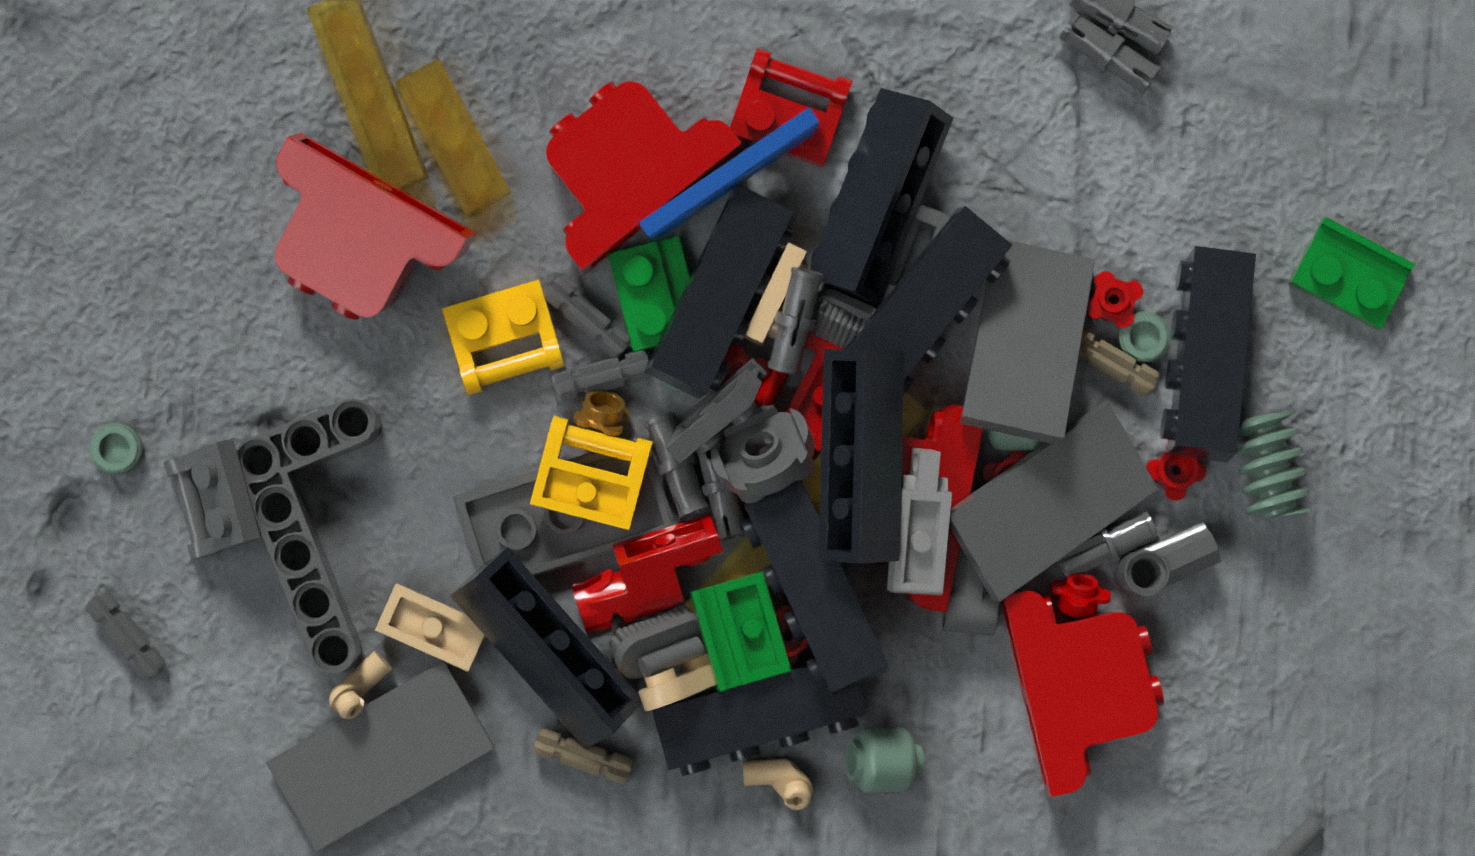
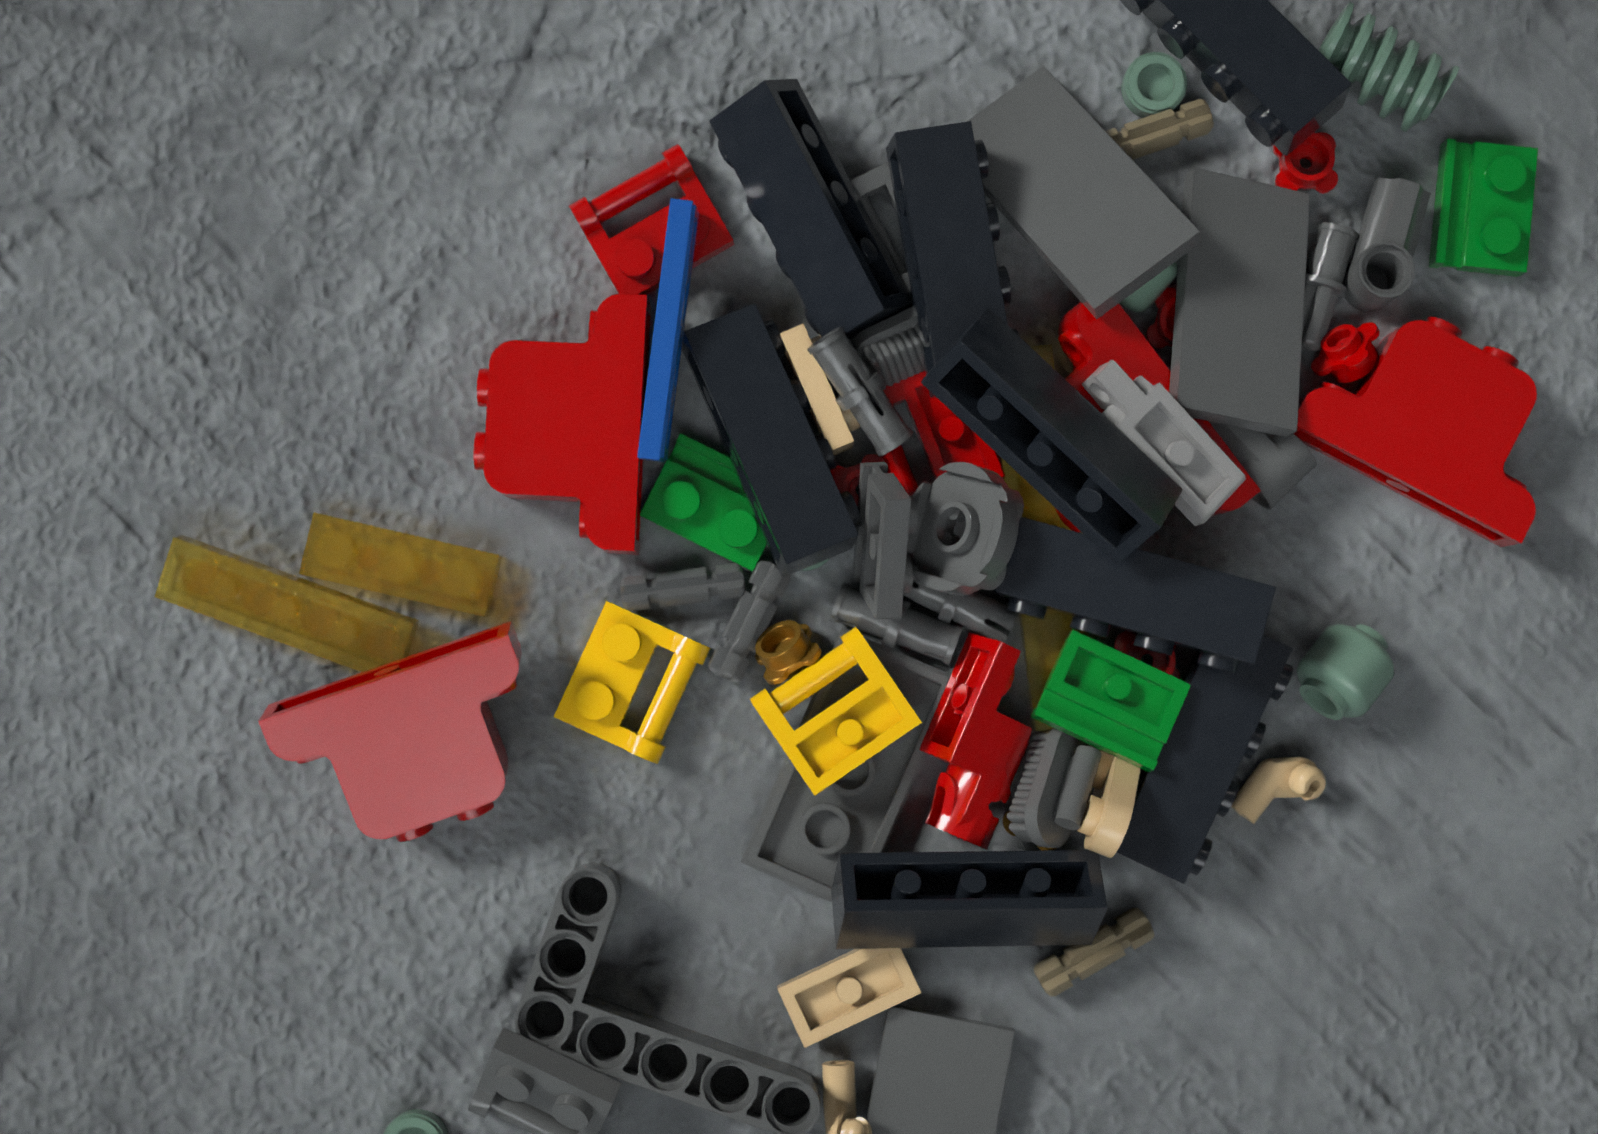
camera: 45 degrees left, 0 degrees up
(1118, 313) = (1103, 63): red plate -> none
(1244, 602) = (1483, 207): none -> green plate

